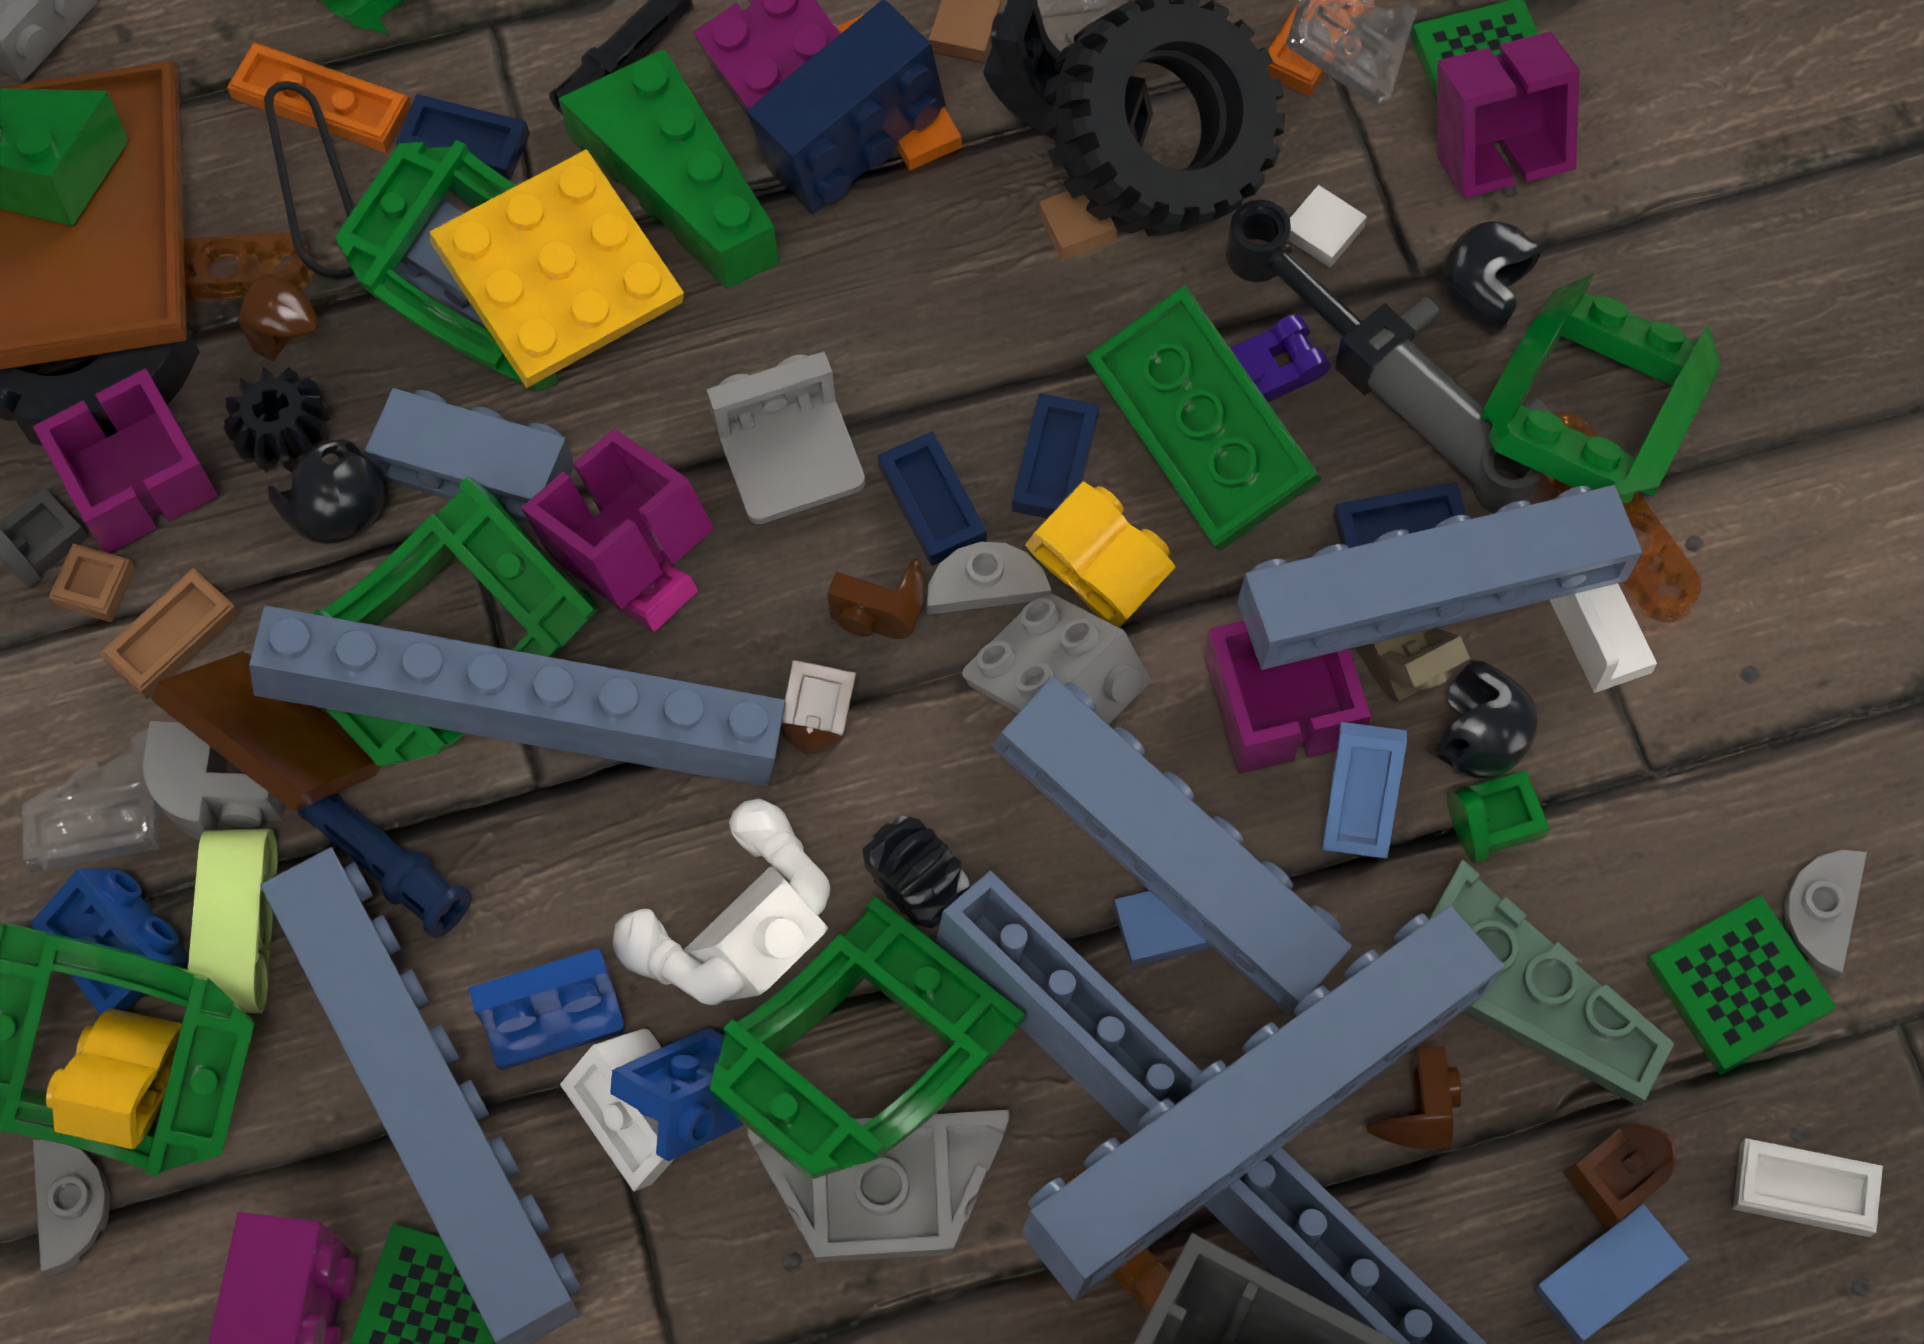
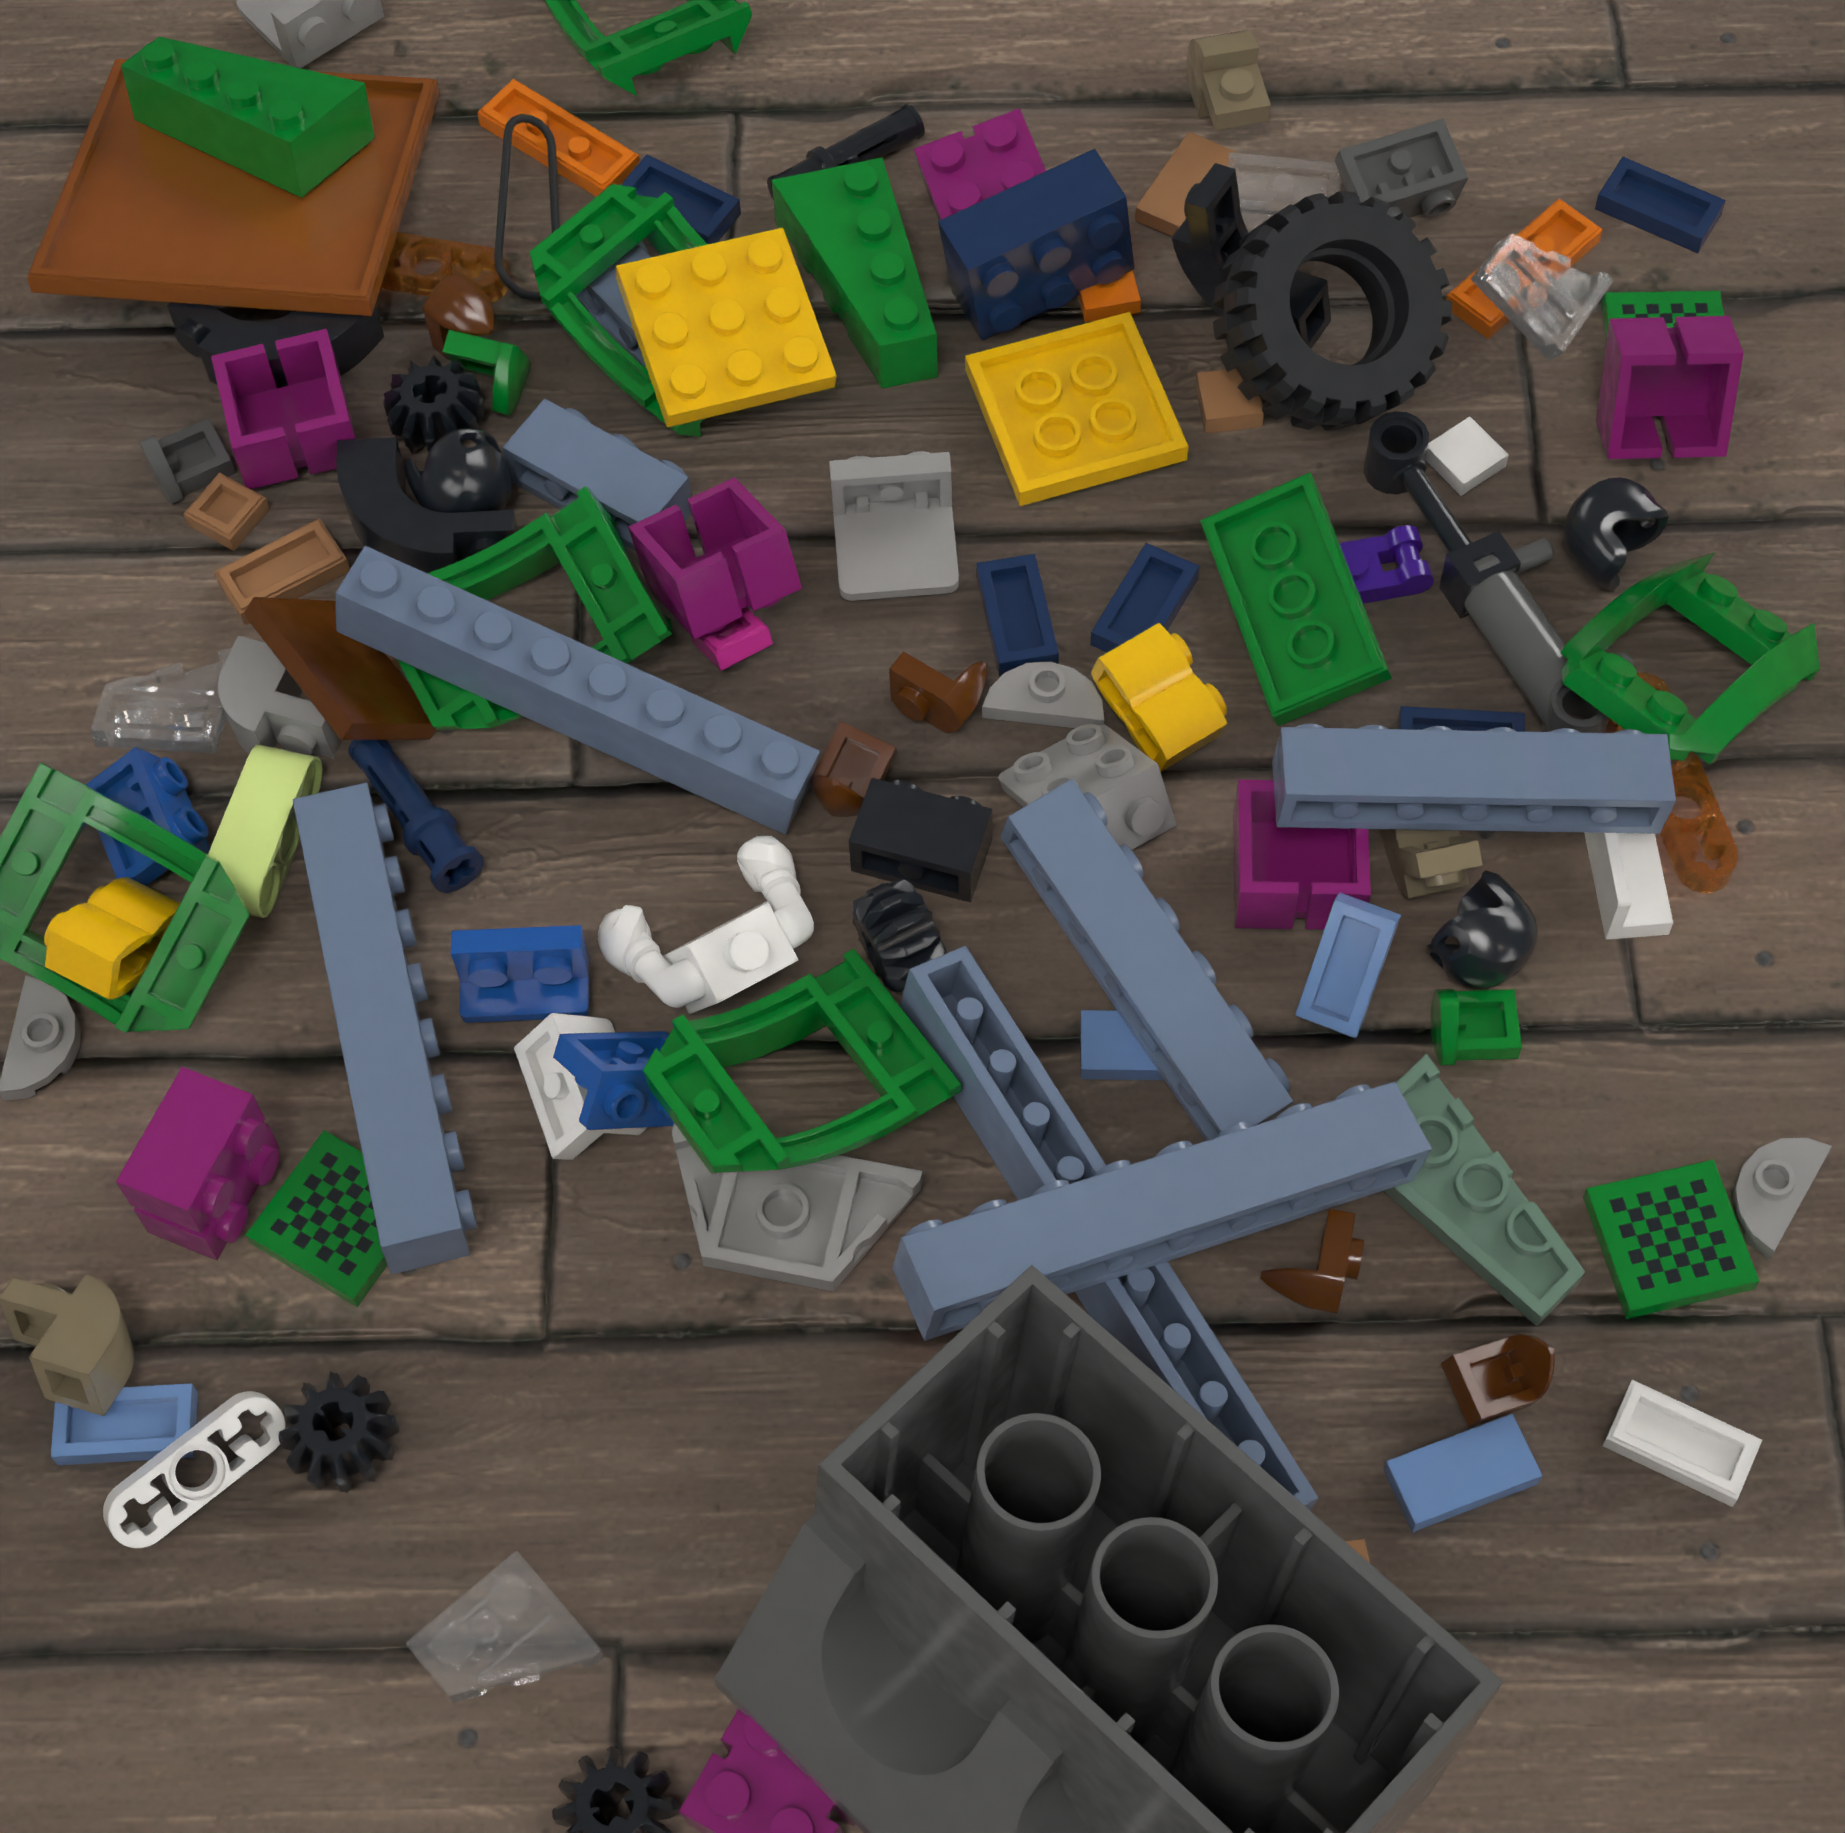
camera: 15 degrees right, 5 degrees down
(281, 563) = (391, 523): none -> black arch
(330, 354) = (492, 359): none -> green tile
(906, 760) = (921, 838): none -> black brick
(929, 267) = (1075, 408): none -> yellow plate

